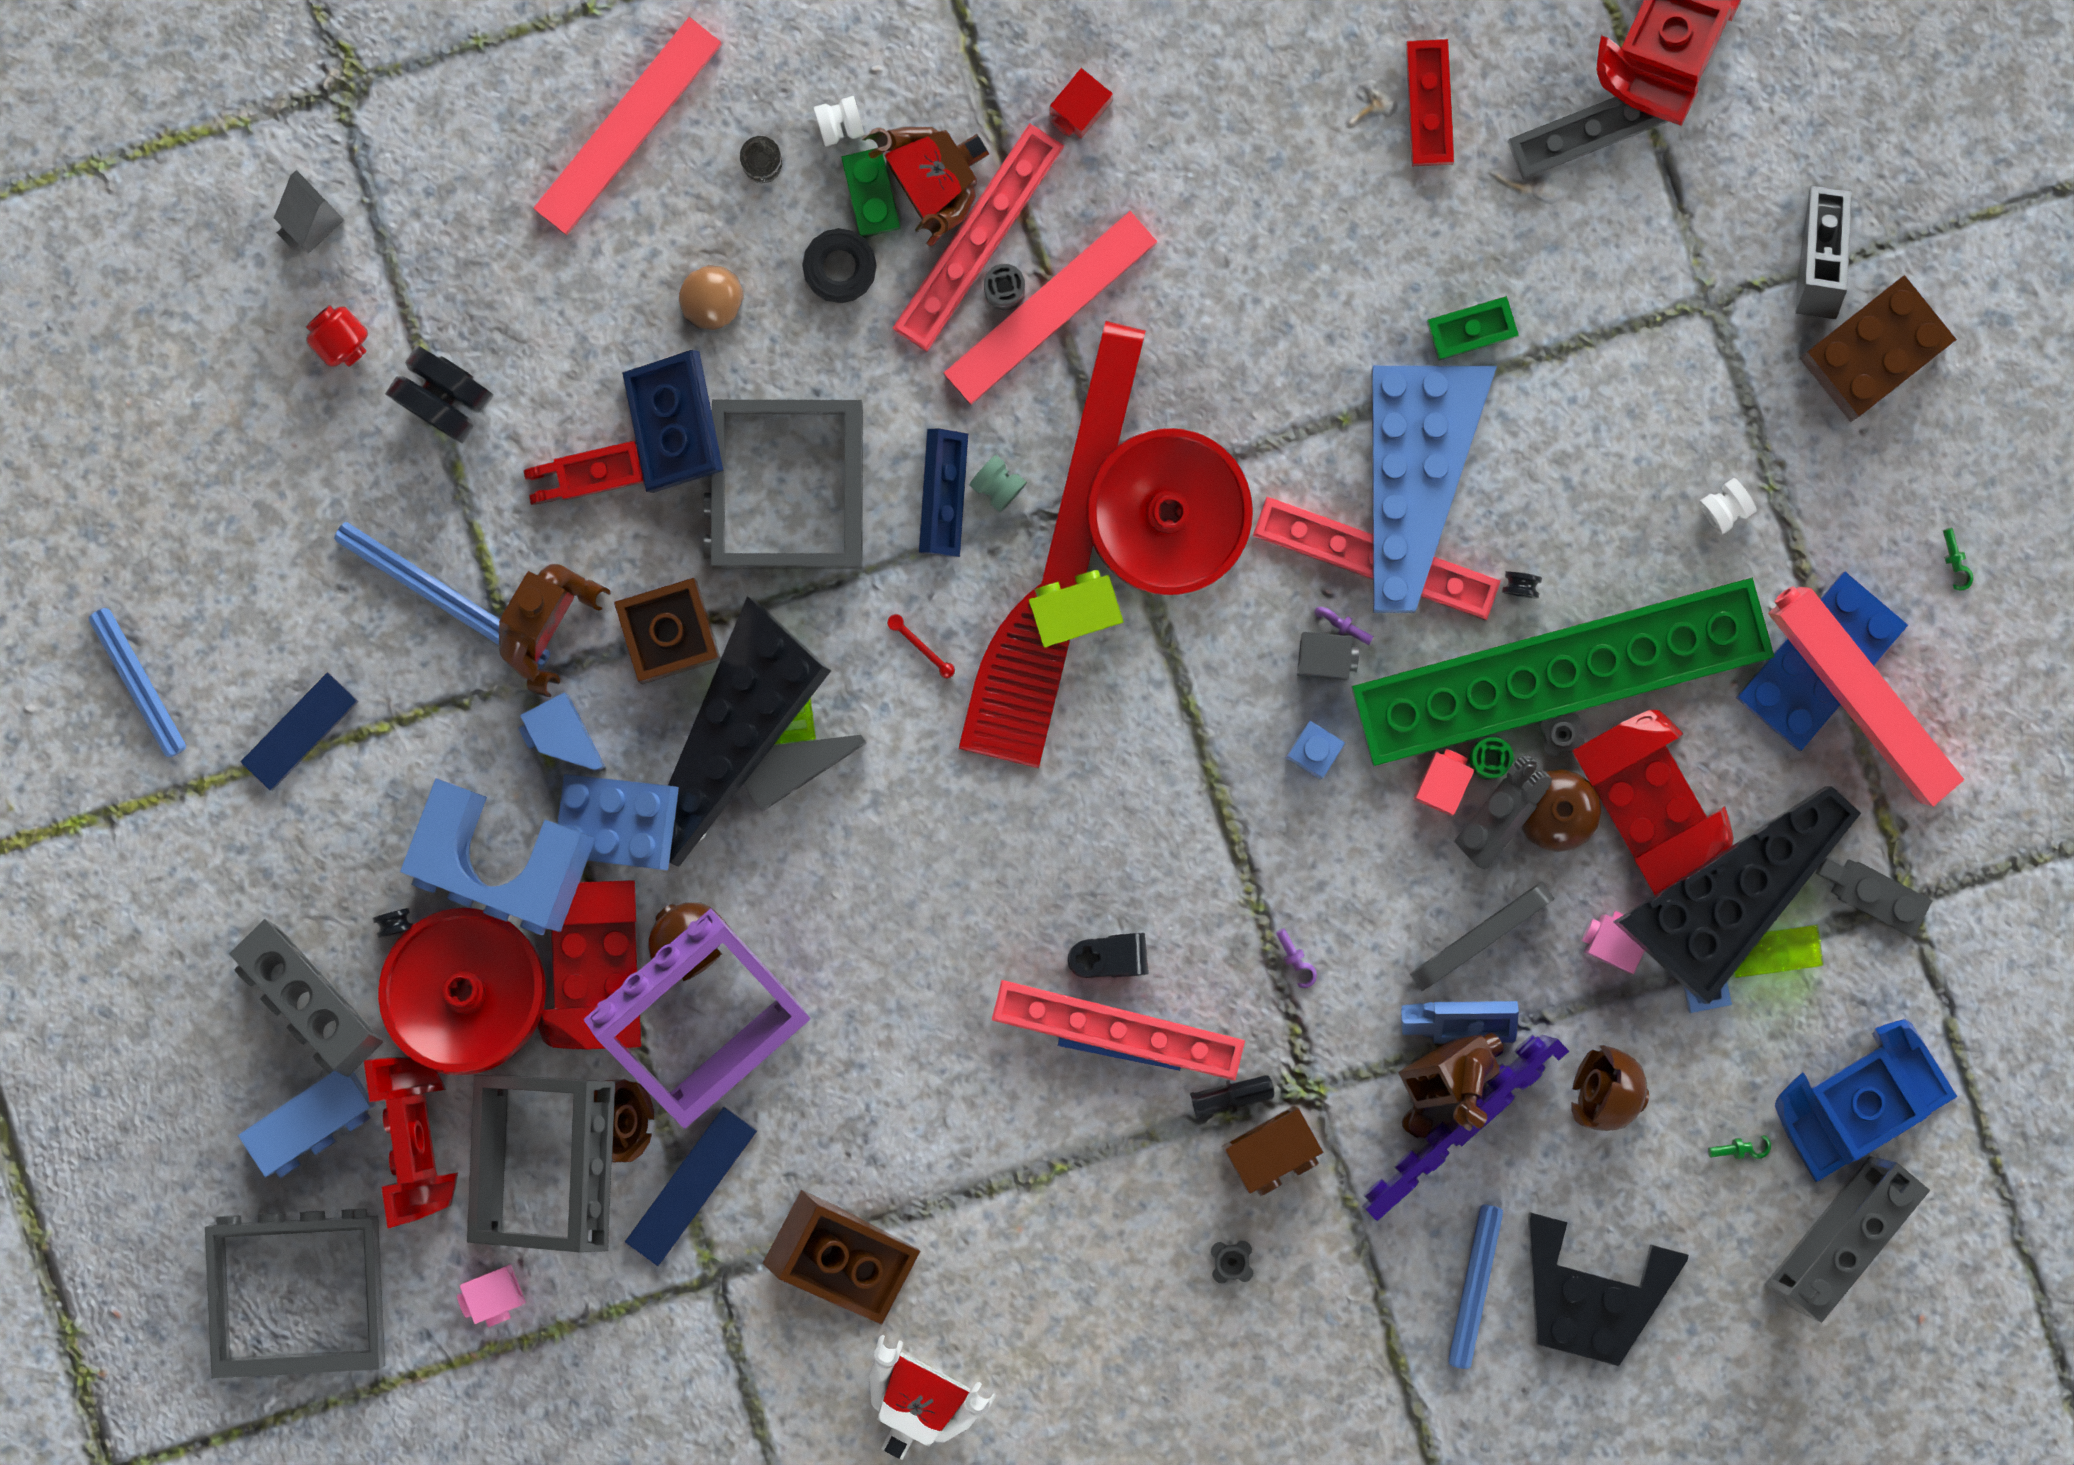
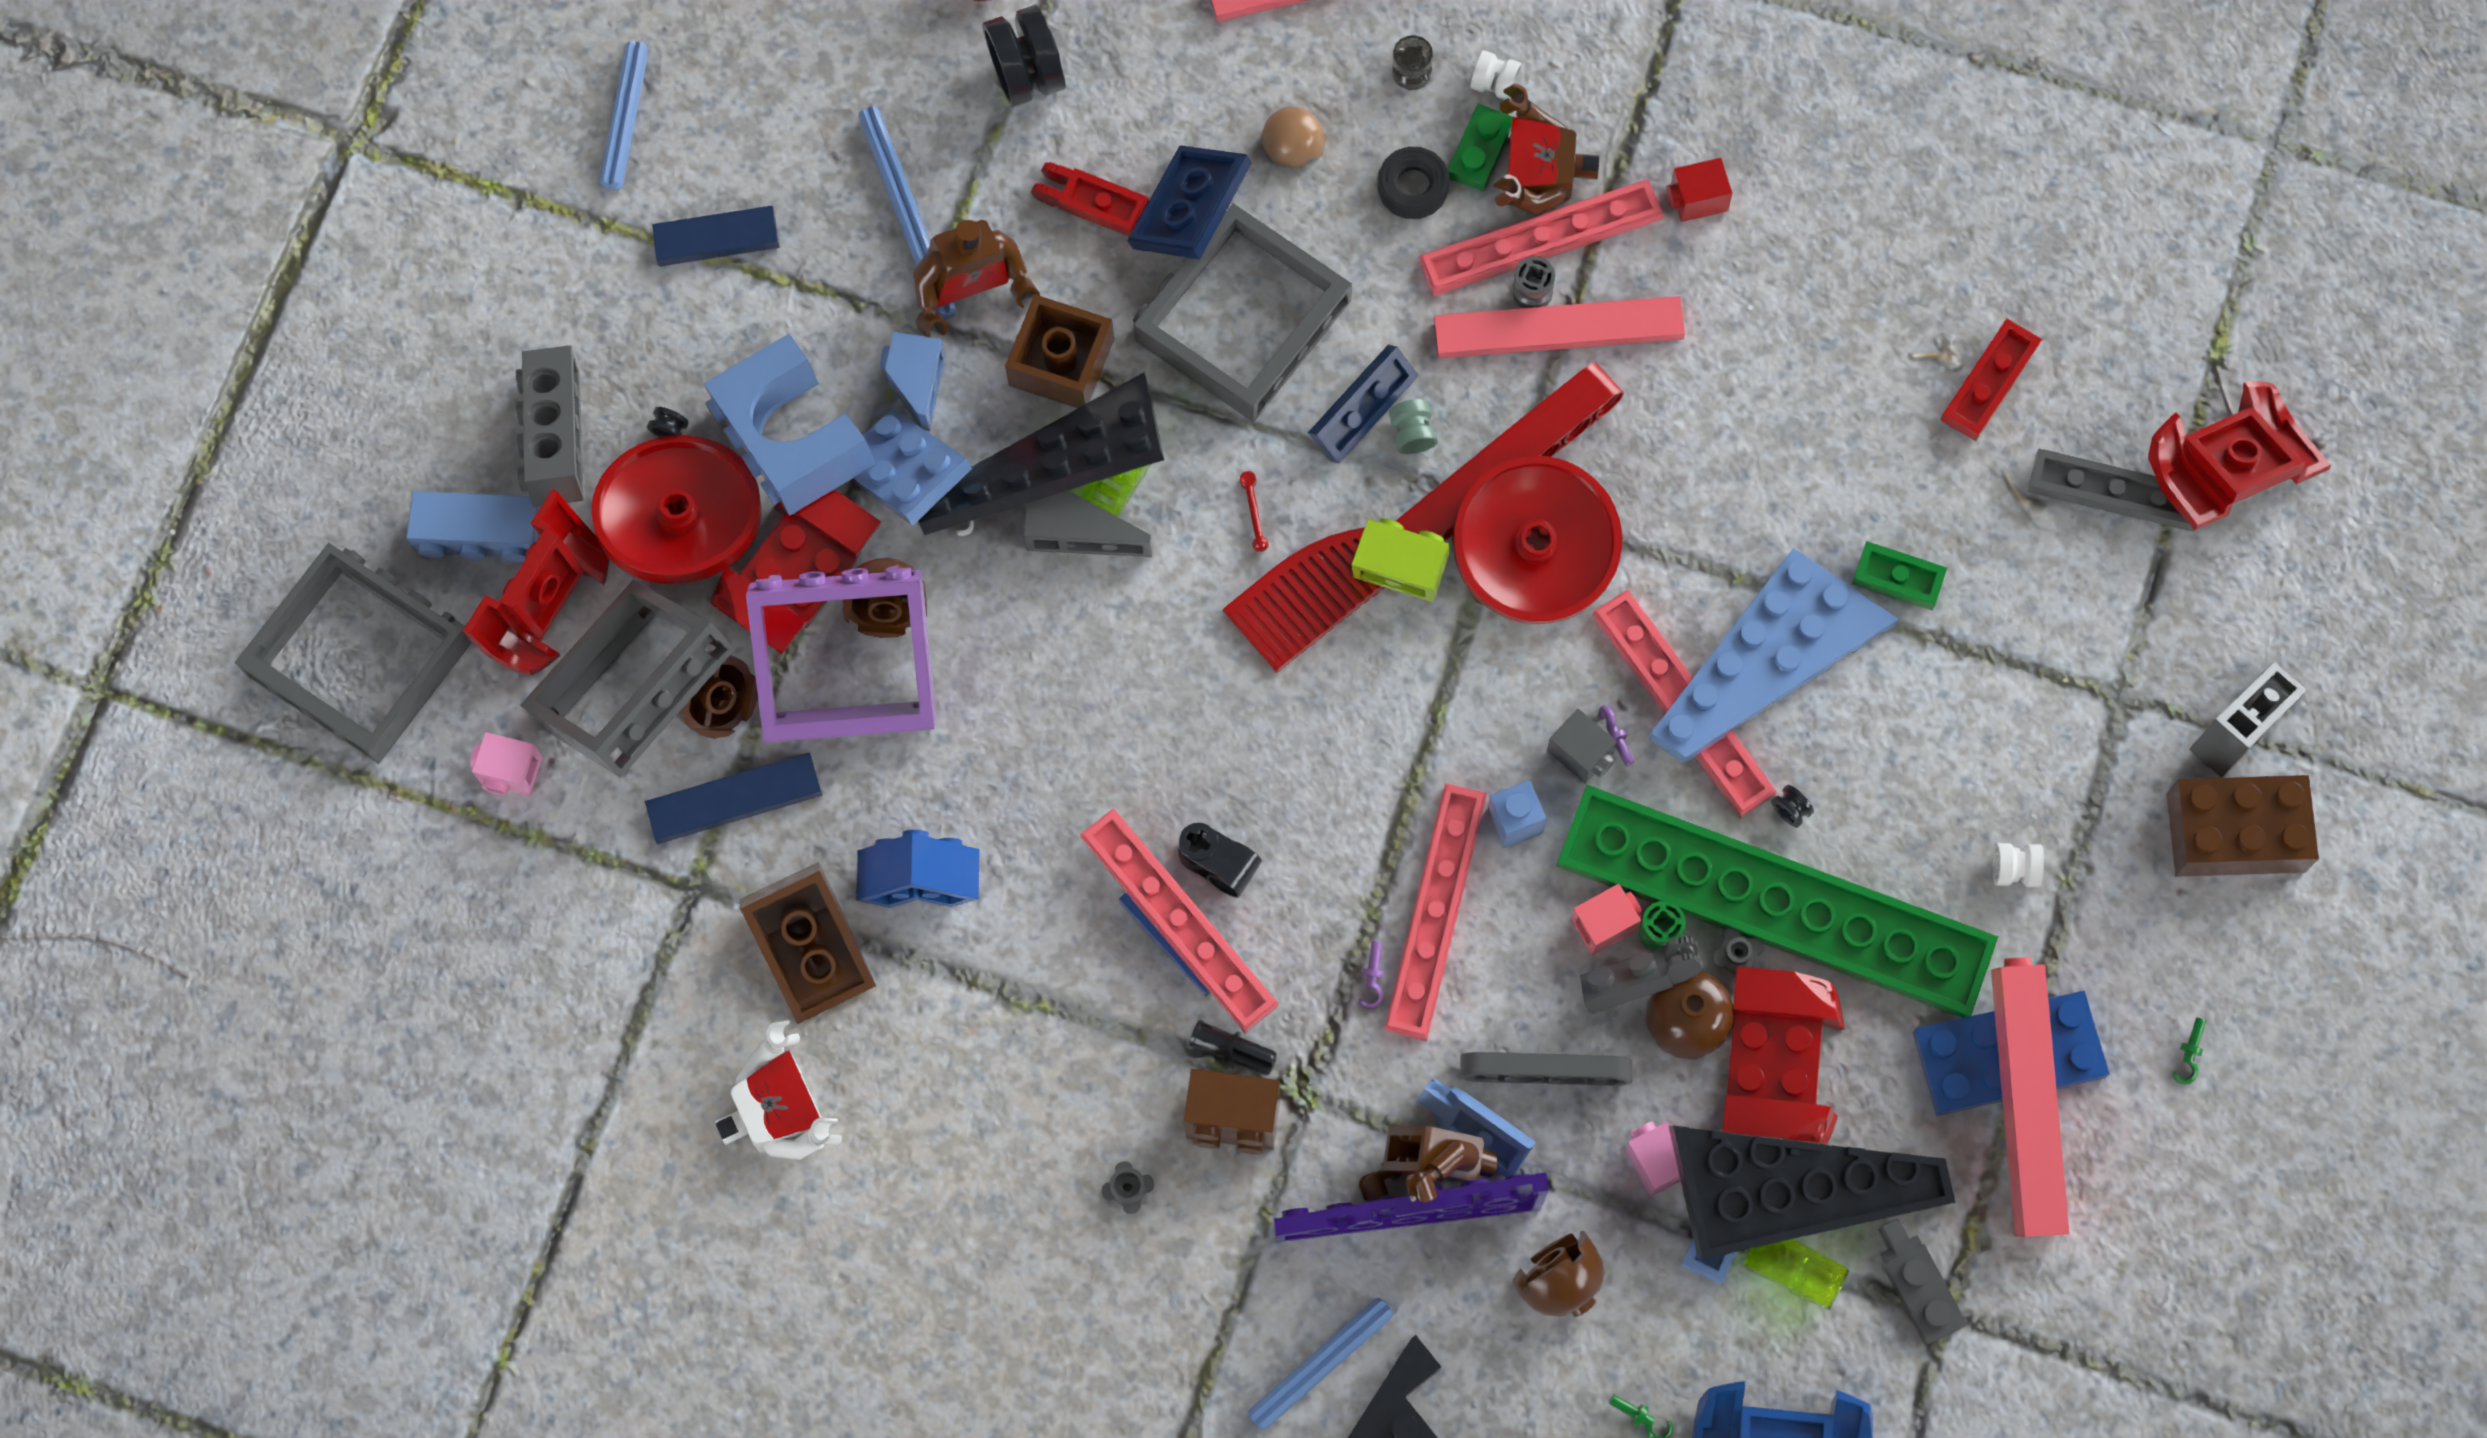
camera: 40 degrees right, 15 degrees down
(886, 1141) = (917, 869): none -> blue brick
(1306, 871) = (1435, 912): none -> coral tile

